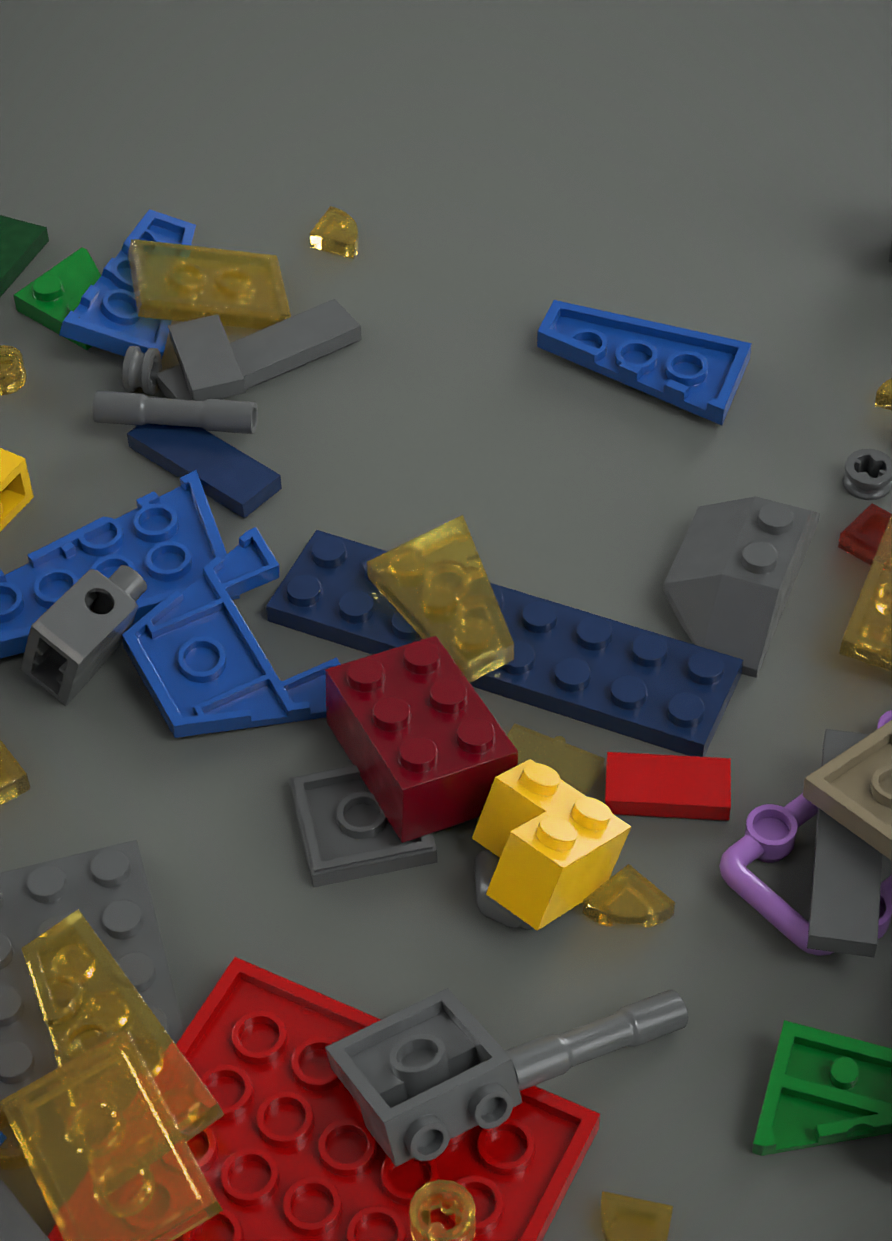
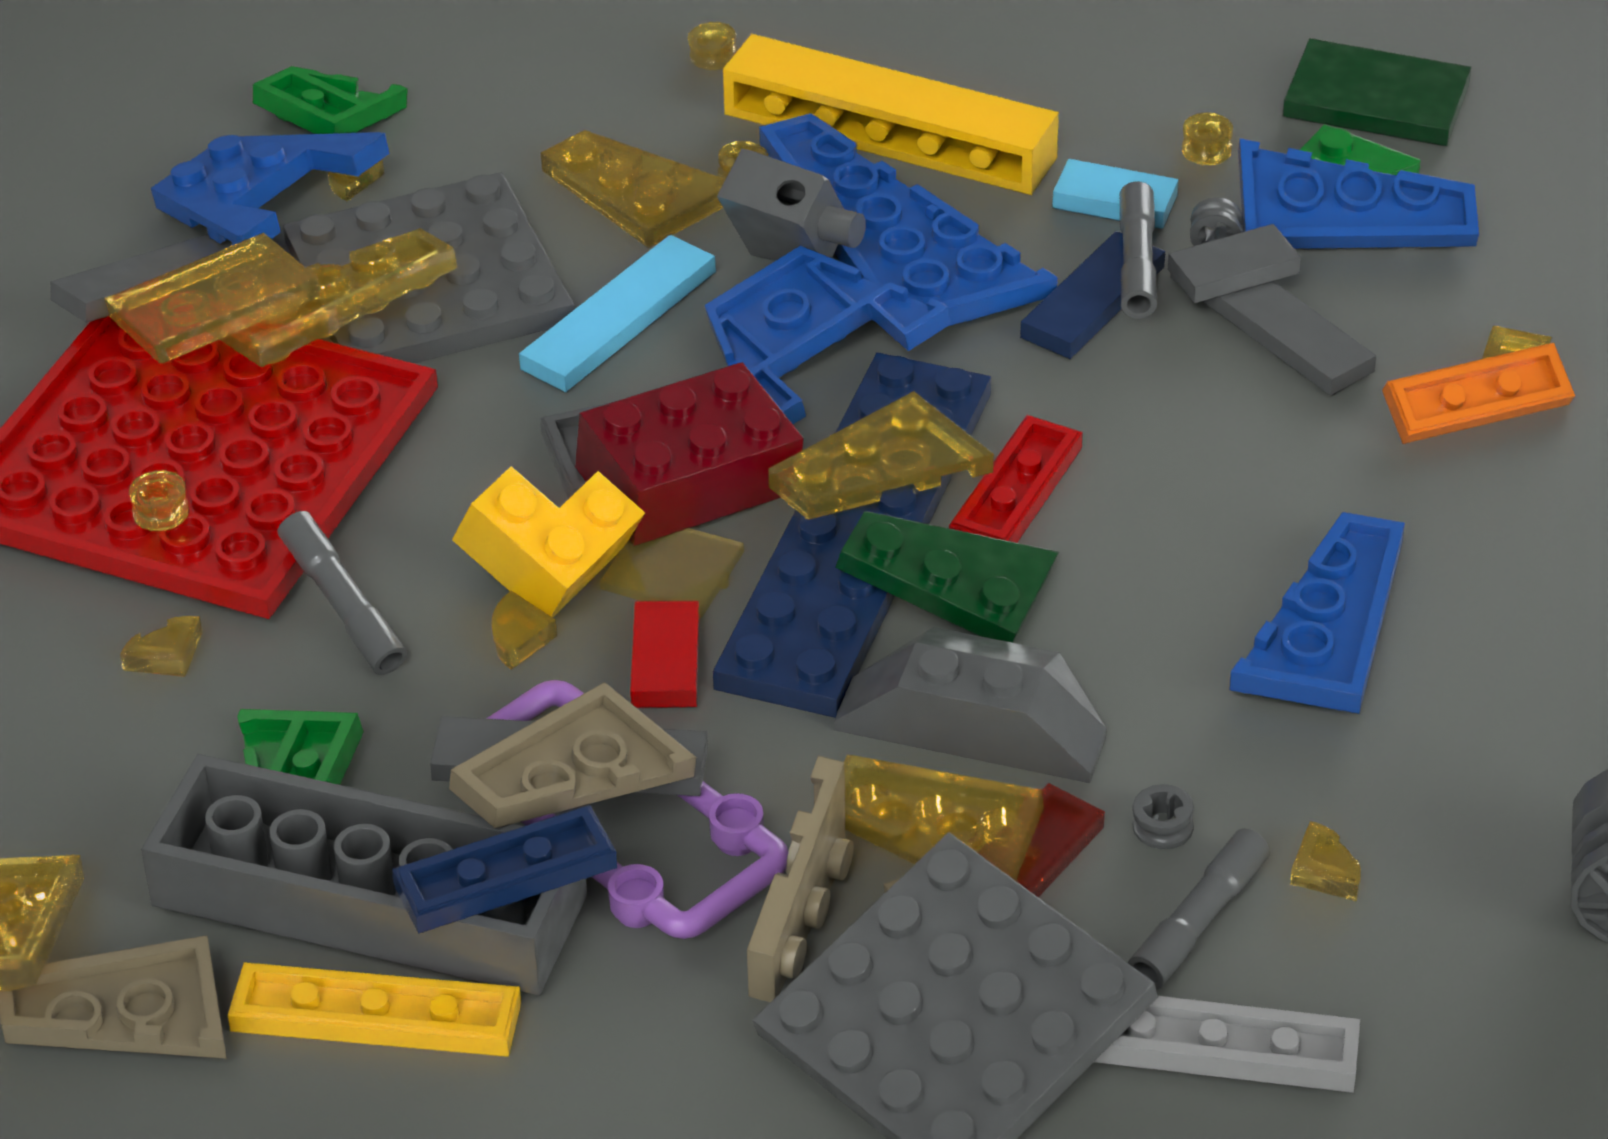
camera: 85 degrees right, 5 degrees down
(59, 436) = (1096, 190): none -> medium azure tile
(149, 810) = (617, 313): none -> medium azure tile
(202, 281) = (1361, 251): clear yellow tile -> none
(390, 252) = (1478, 393): none -> orange tile
(426, 1077) = (283, 466): dark grey plate -> none
(502, 547) = (1020, 480): none -> red tile
(592, 569) = (949, 572): none -> dark green wing

